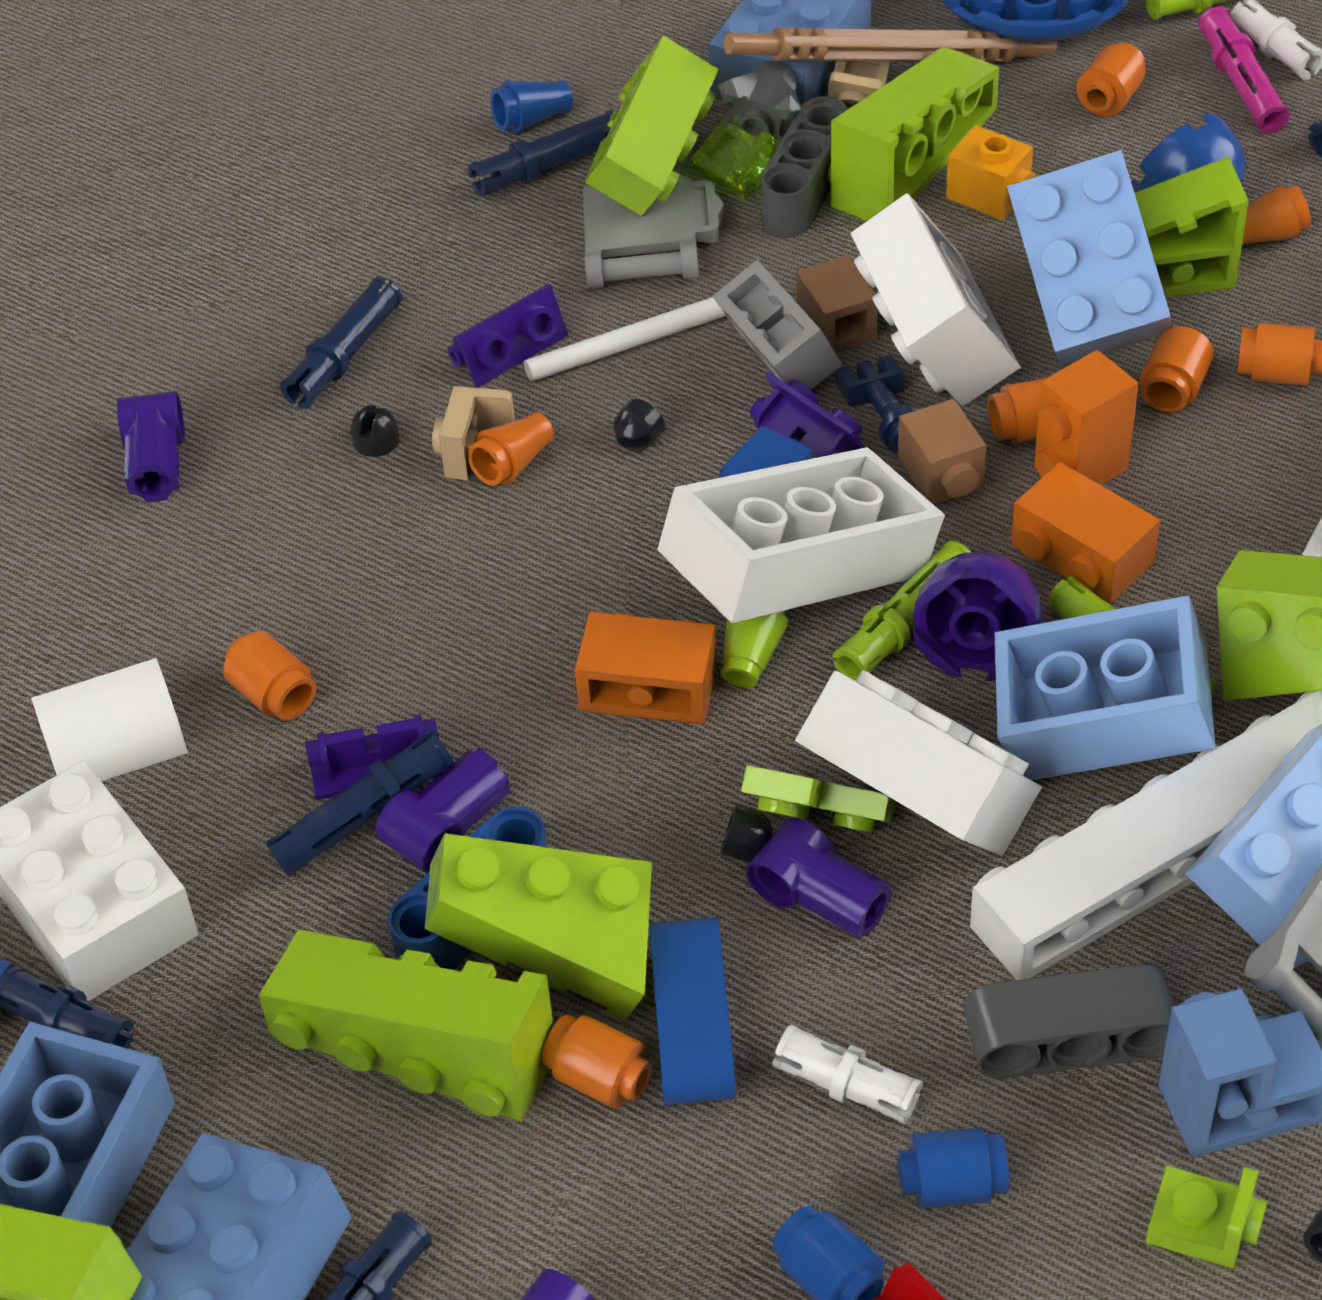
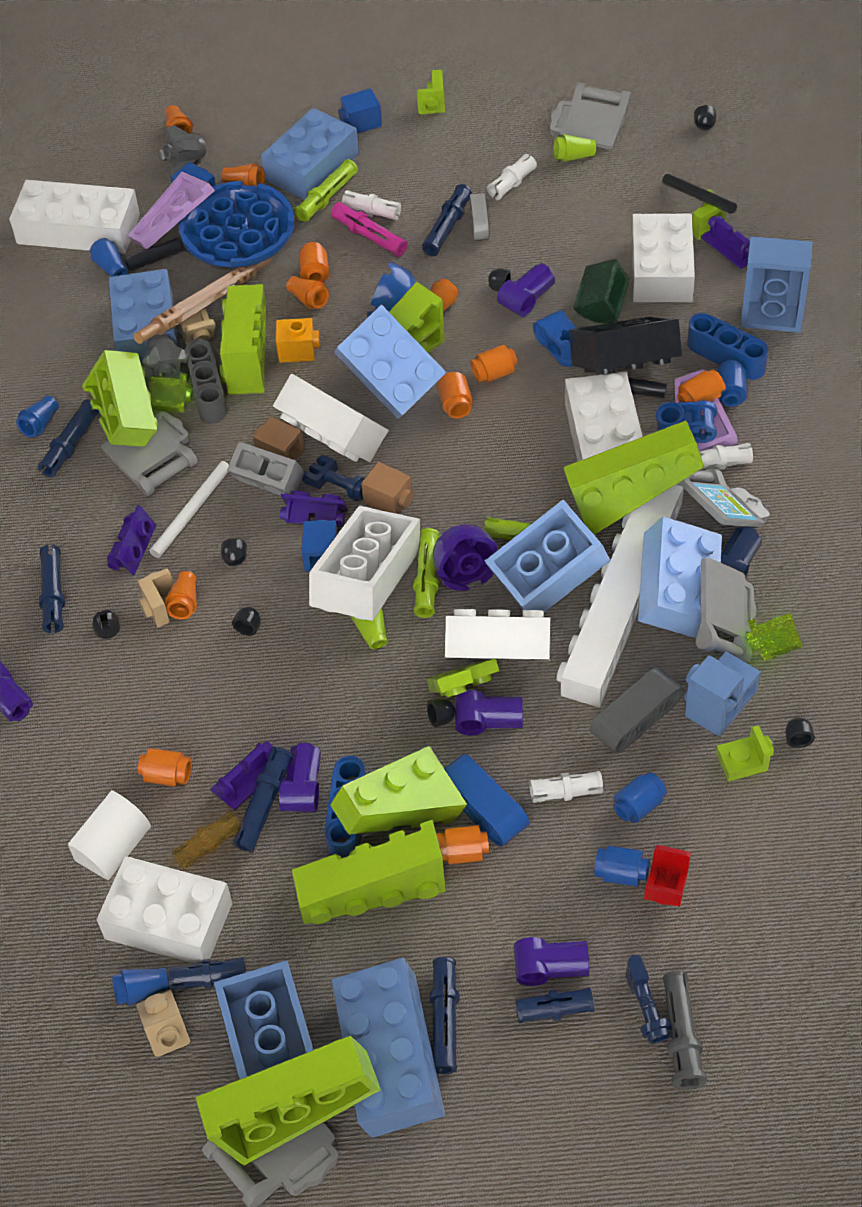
camera: 35 degrees left, 5 degrees up
(234, 816) = (206, 840): none -> clear yellow pin
(571, 533) = (246, 621): none -> black hinge
(646, 667) = (337, 662): orange brick -> none
(1015, 411) = (408, 448): orange brick -> none
(1070, 116) = (309, 292): none -> orange cone
(1085, 532) = (475, 493): orange brick -> none
(1086, 419) = (443, 443): orange brick -> none

